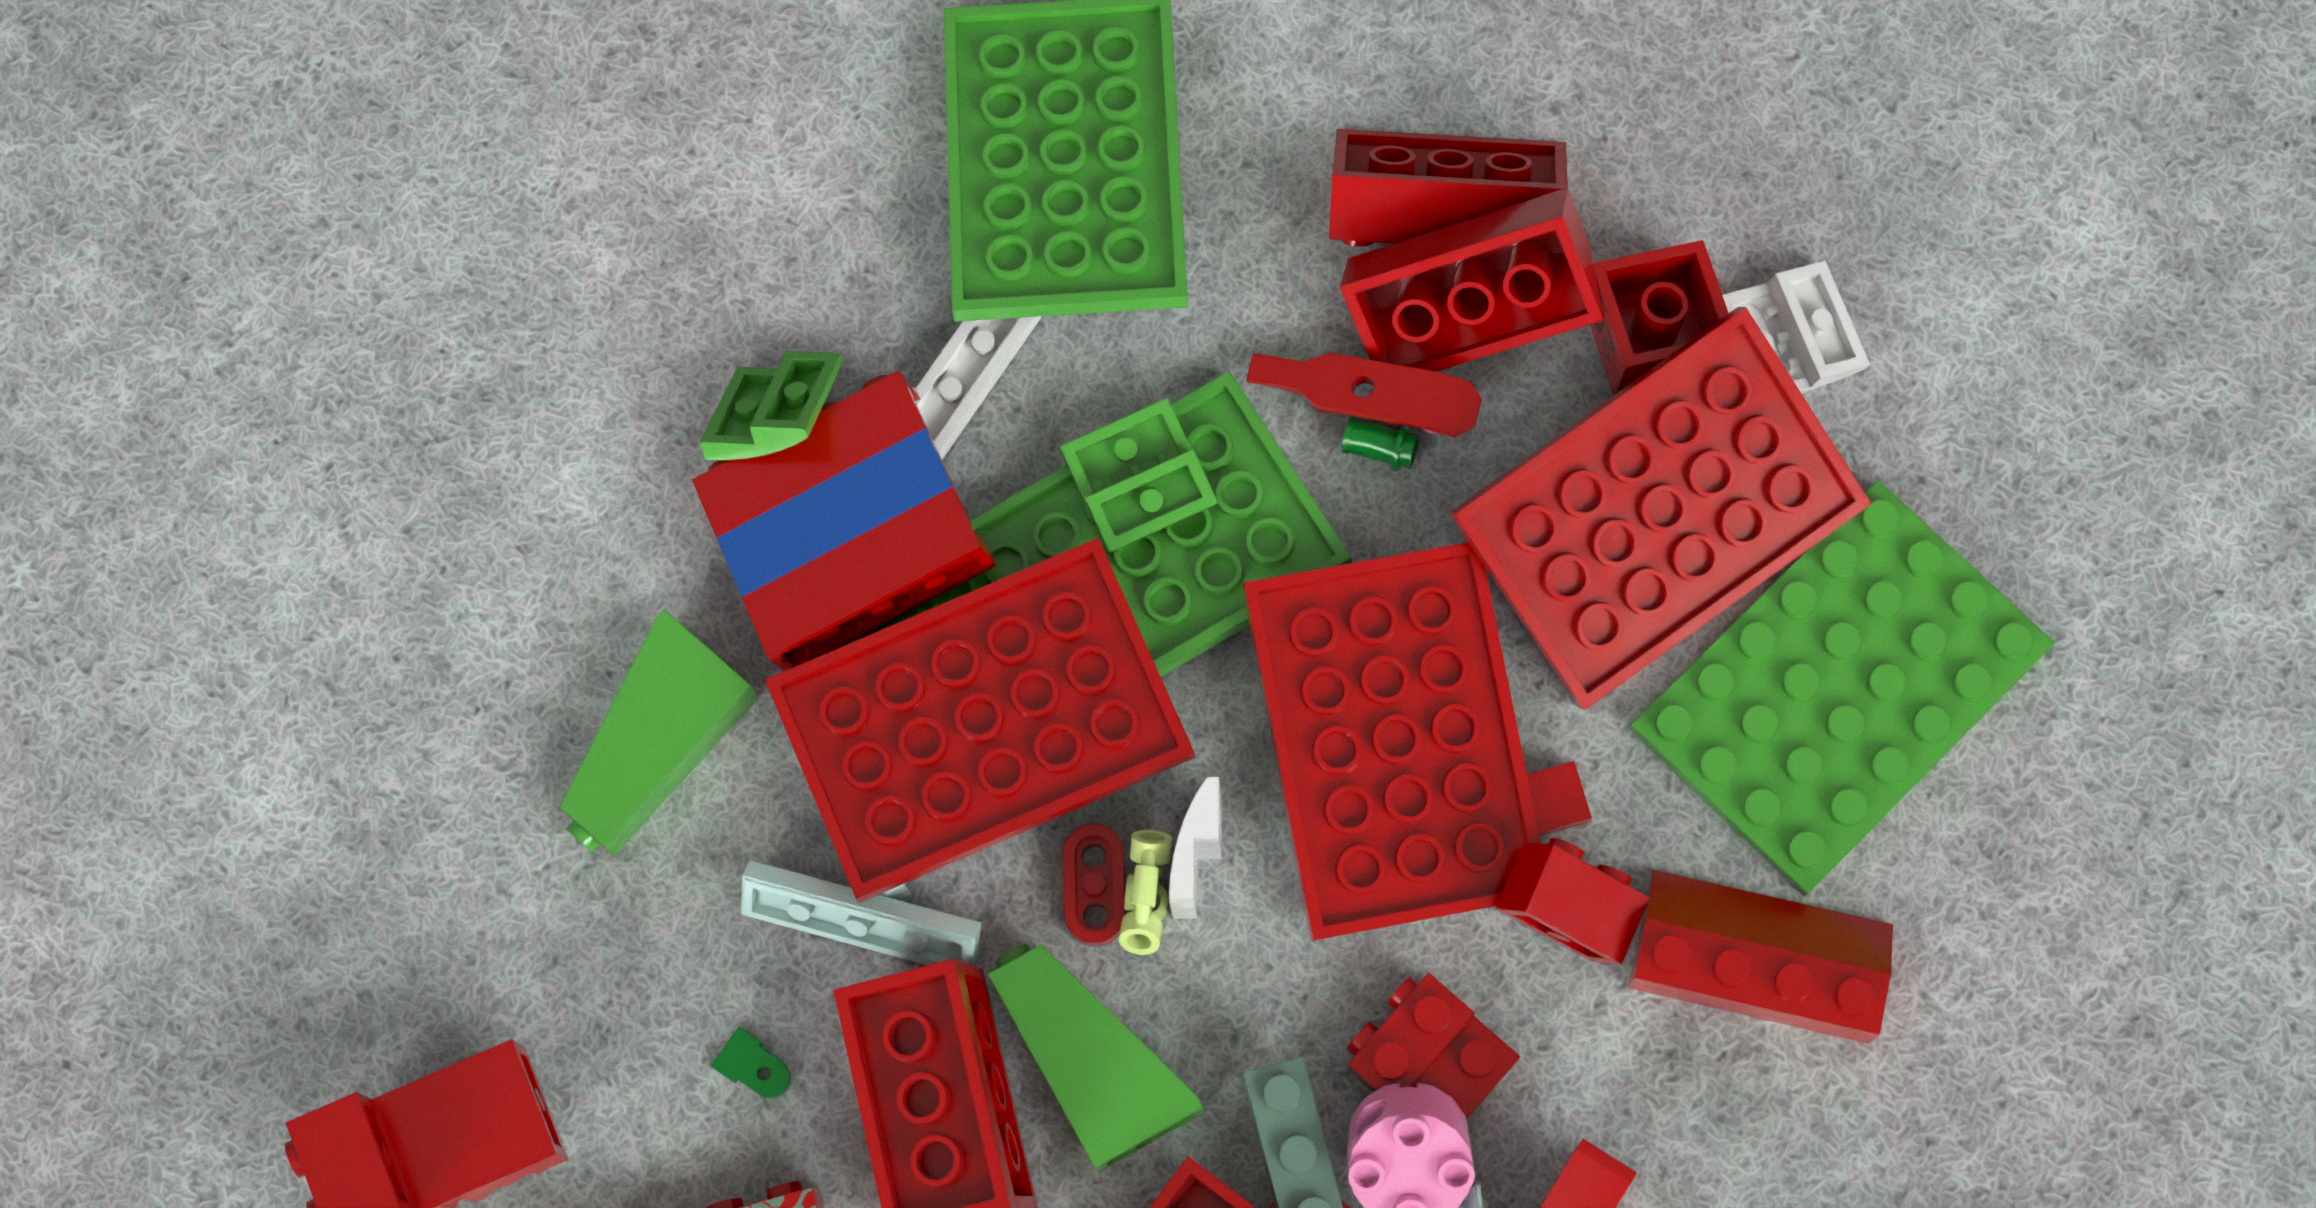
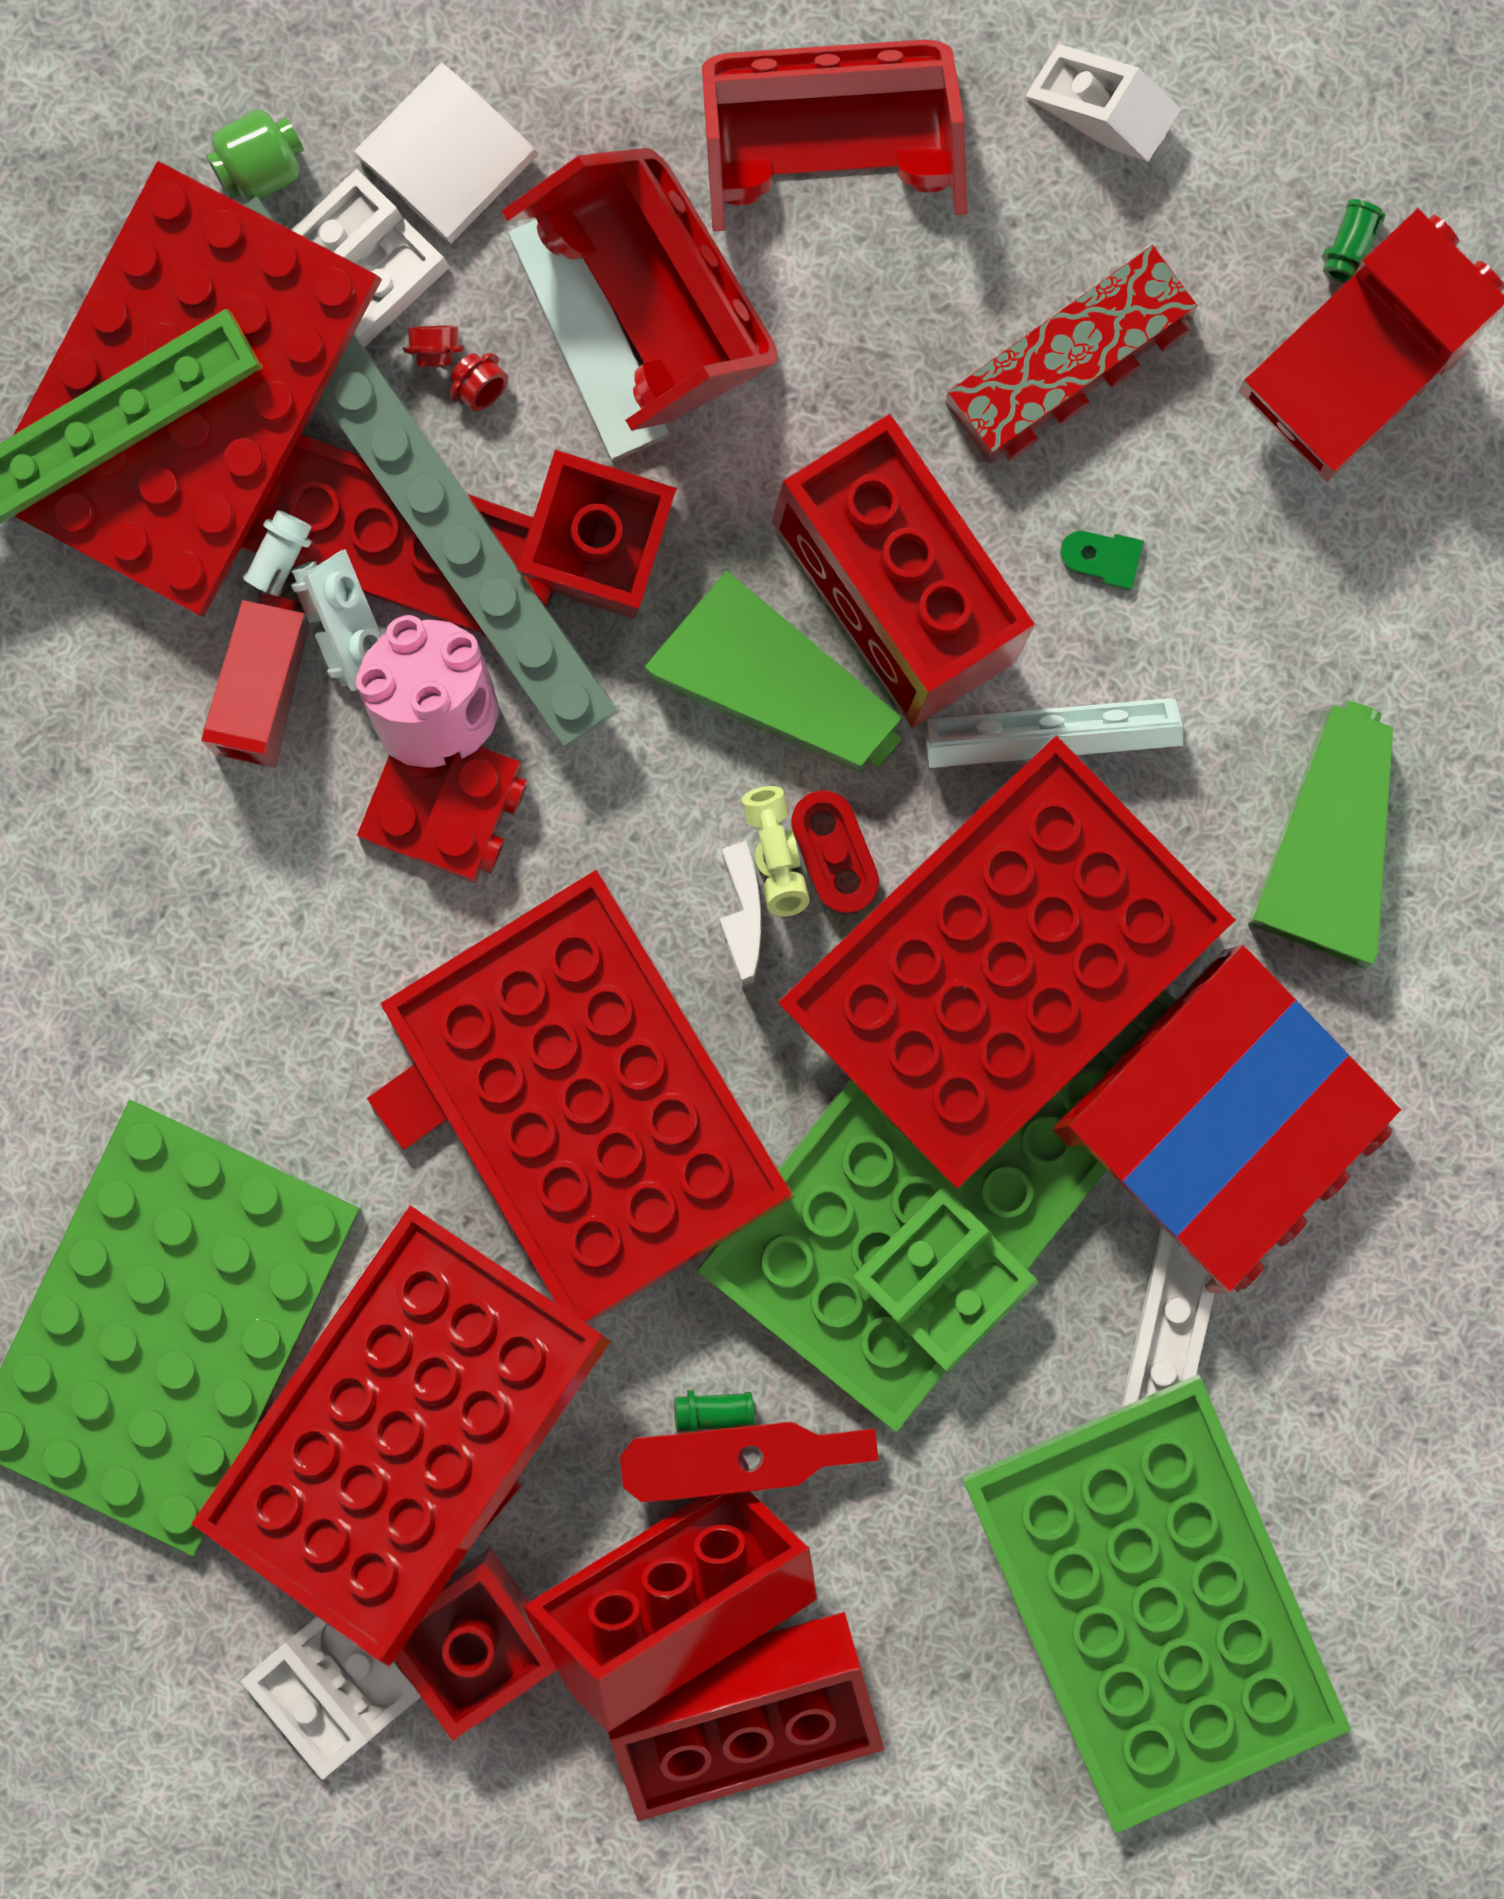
camera: 155 degrees right, 10 degrees up
(770, 406) = (1350, 1214): bright green slope -> none
(1573, 901) = (354, 998): red brick -> none
(1763, 957) = (153, 1021): red slope -> none

